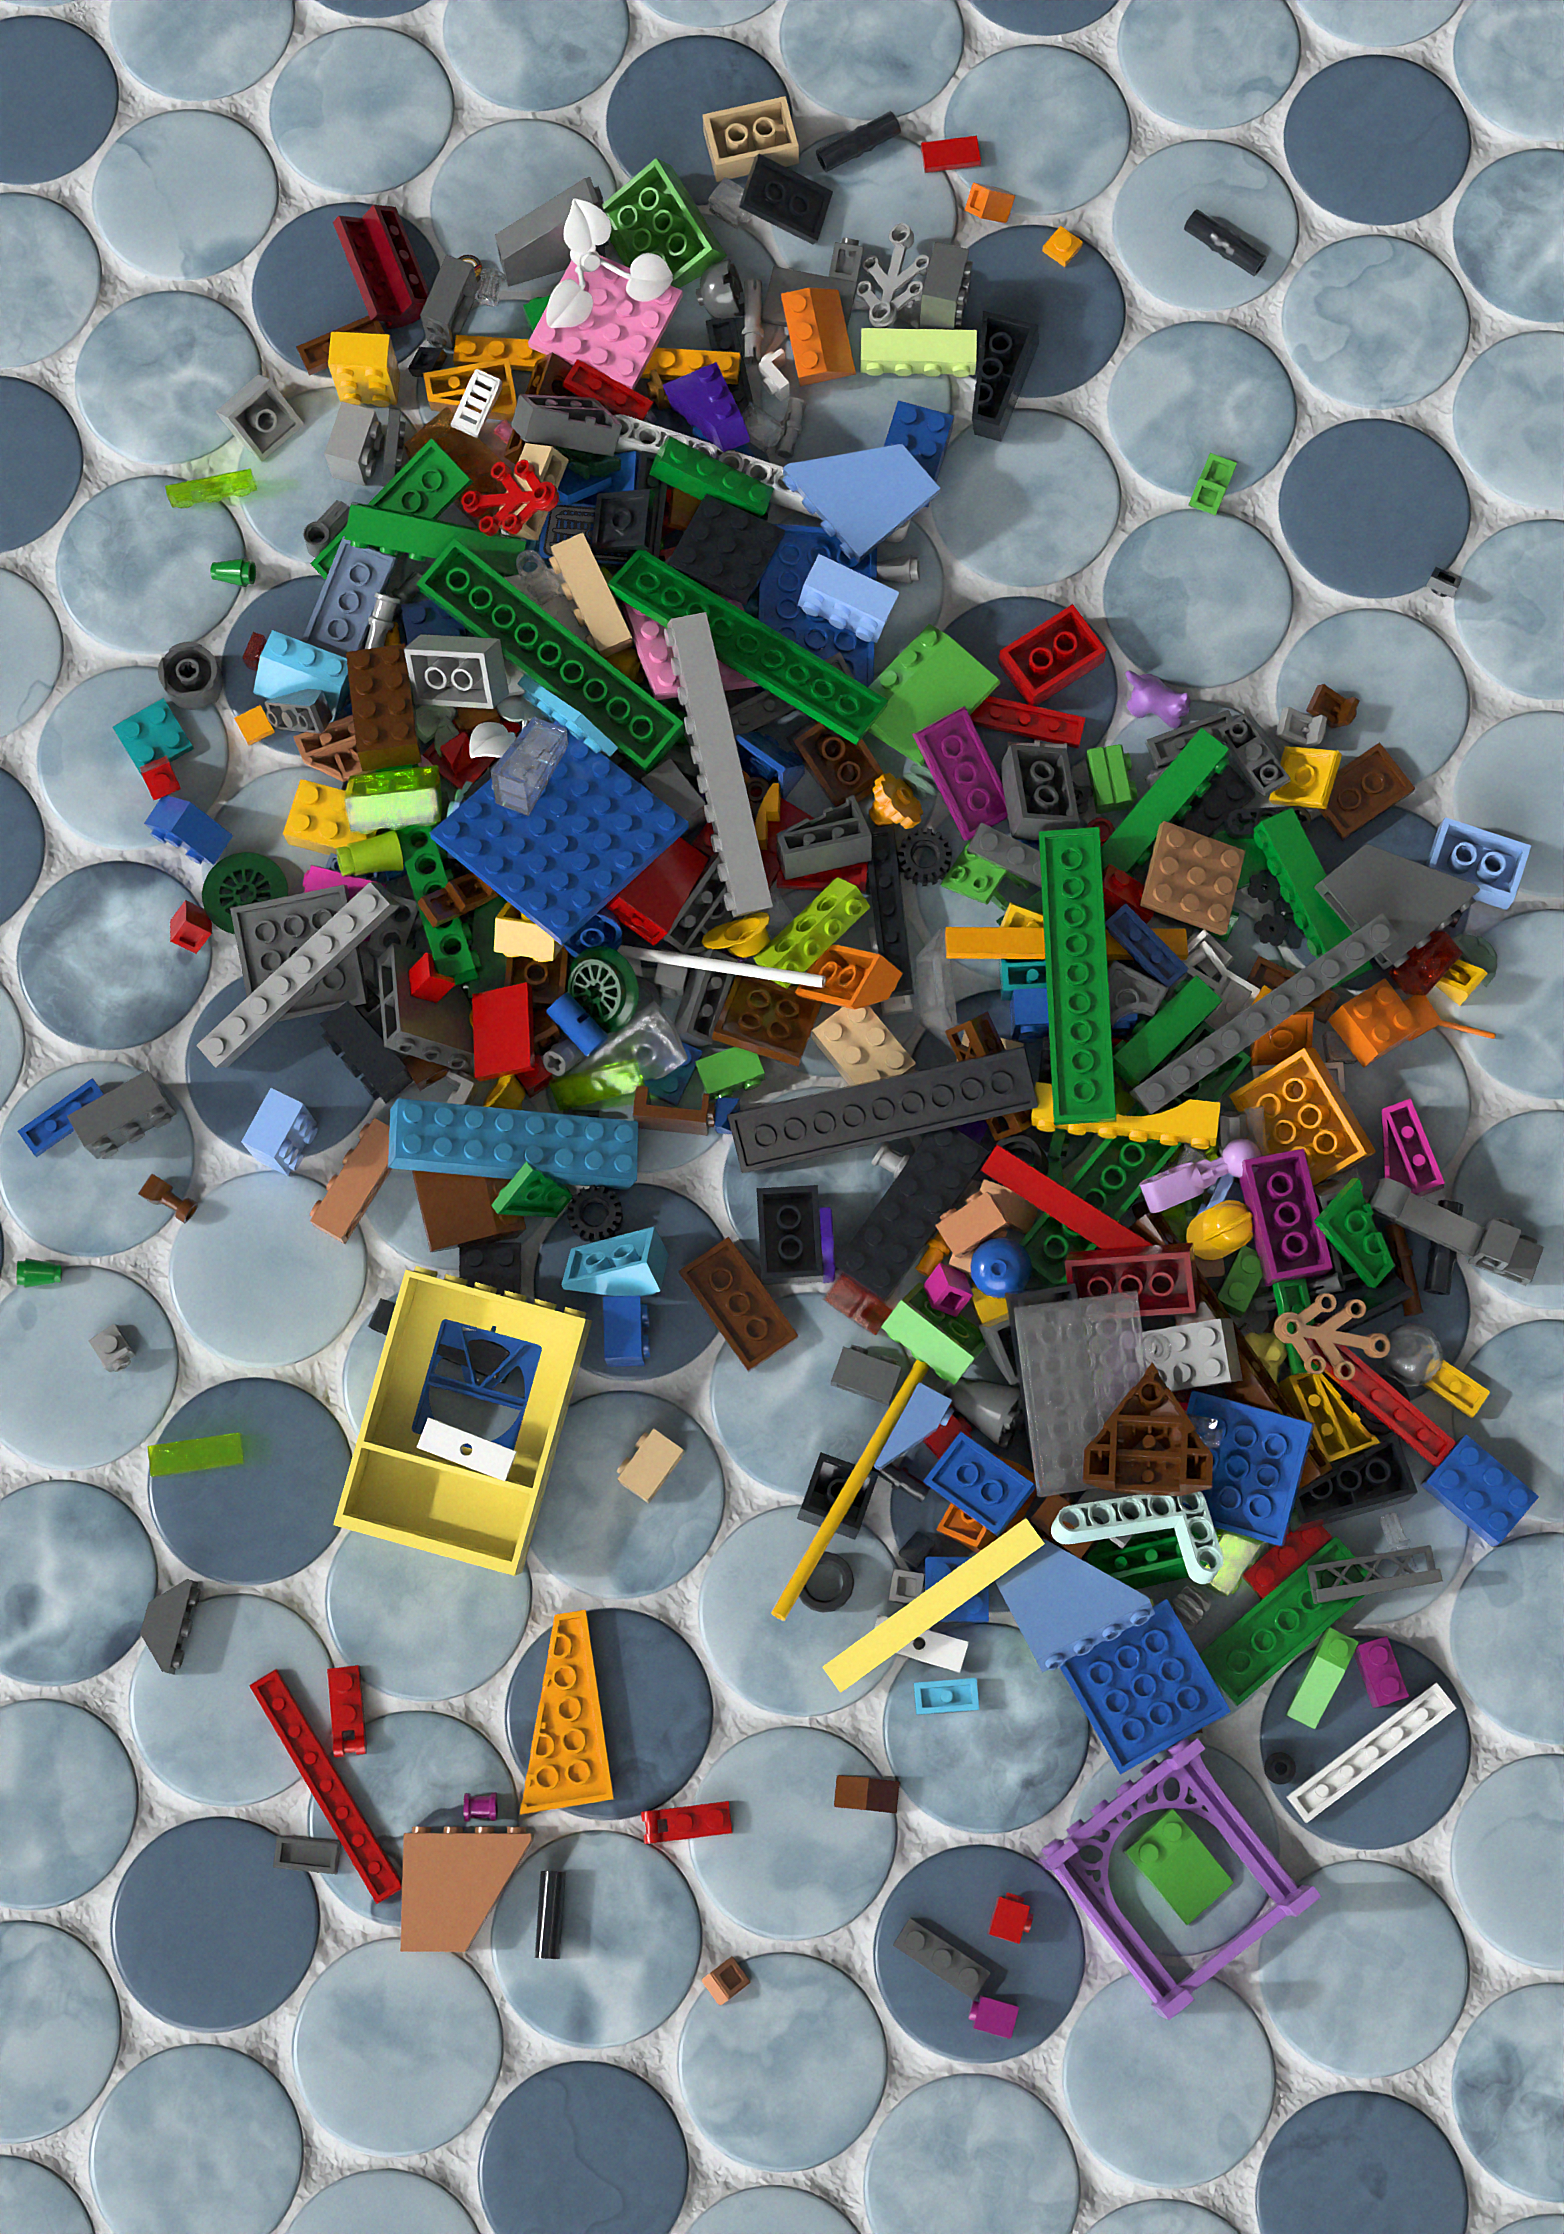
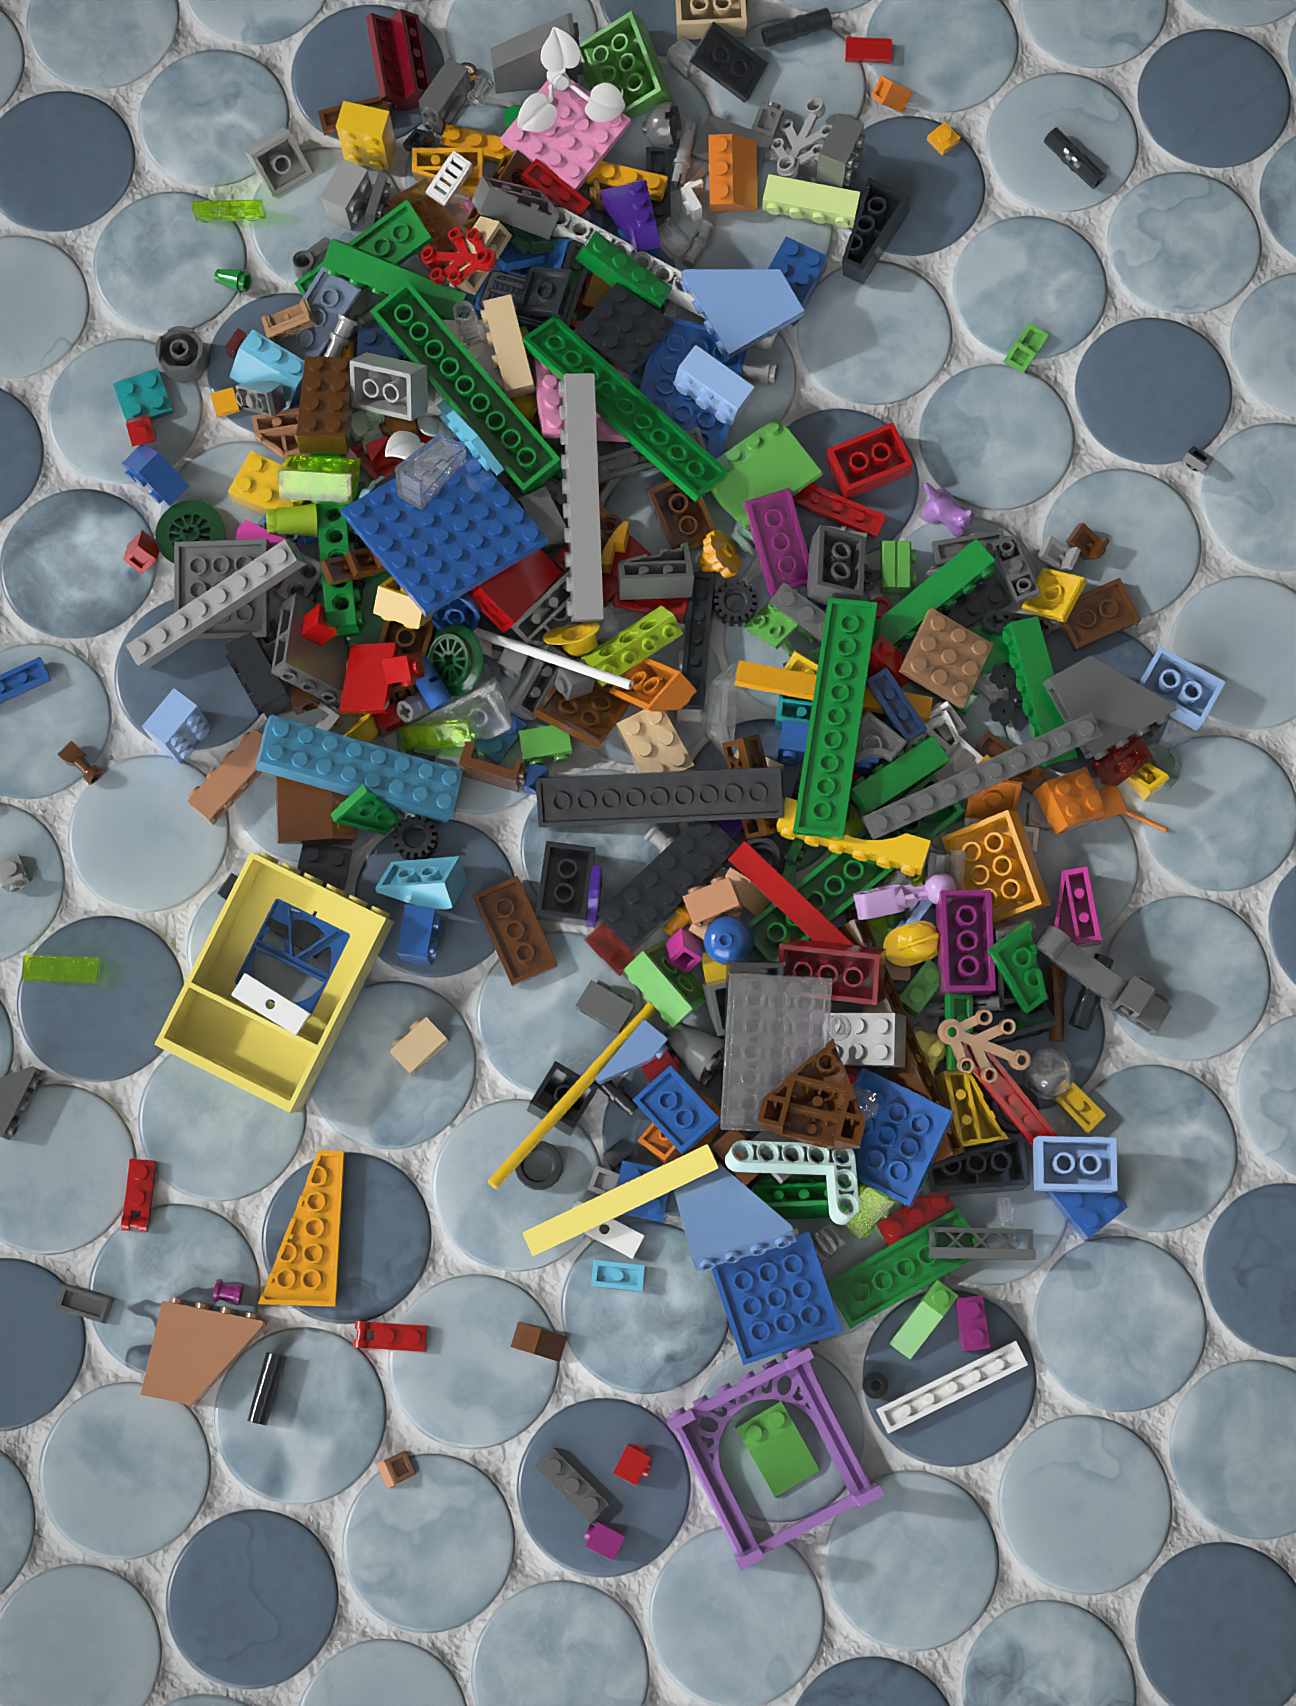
camera: 10 degrees right, 0 degrees up
(122, 1115) = (56, 690): dark grey brick -> none
(314, 612) = (289, 321): none -> medium nougat hinge
(327, 1786) = (110, 1252): red tile -> none
(544, 1012) = (403, 668): none -> red brick
(750, 991) = (572, 683): none -> dark grey brick
(765, 759) = (621, 500): blue slope -> none
(1467, 1458) = (1075, 1164): none -> light blue brick

